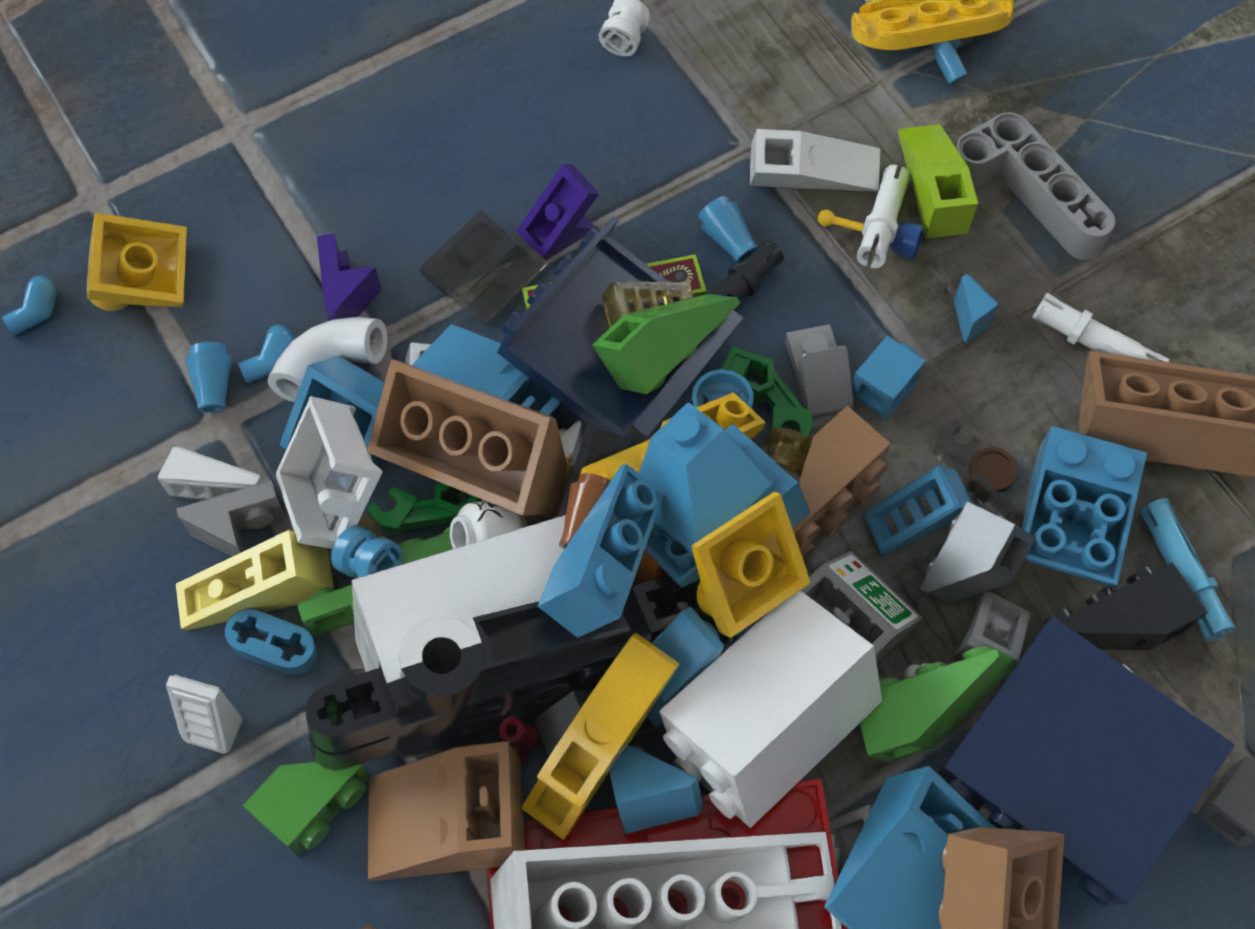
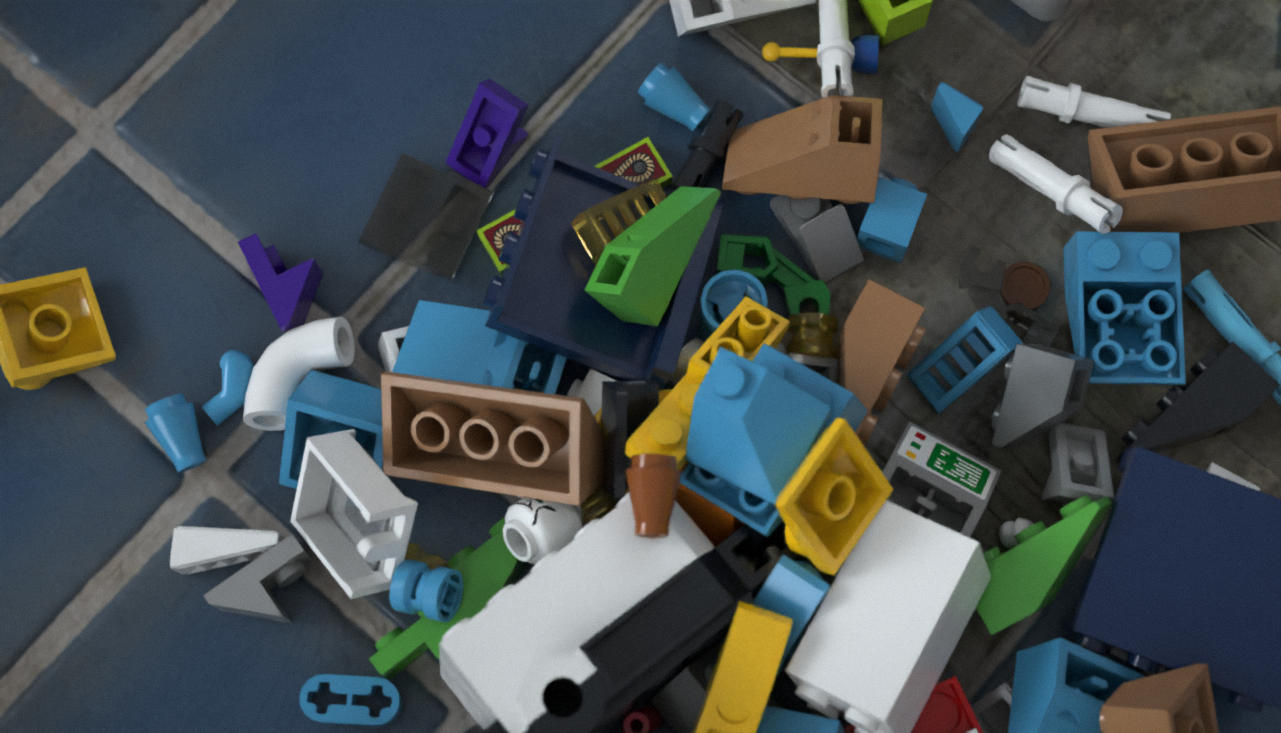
camera: 15 degrees left, 10 degrees up
(261, 578) = (310, 646): light yellow slope -> none
(415, 514) = (450, 518): green piece -> none
(603, 556) = (687, 542): dark azure slope -> none
(837, 299) = (810, 152): none -> medium nougat slope
(1055, 393) = (1069, 192): none -> white pin

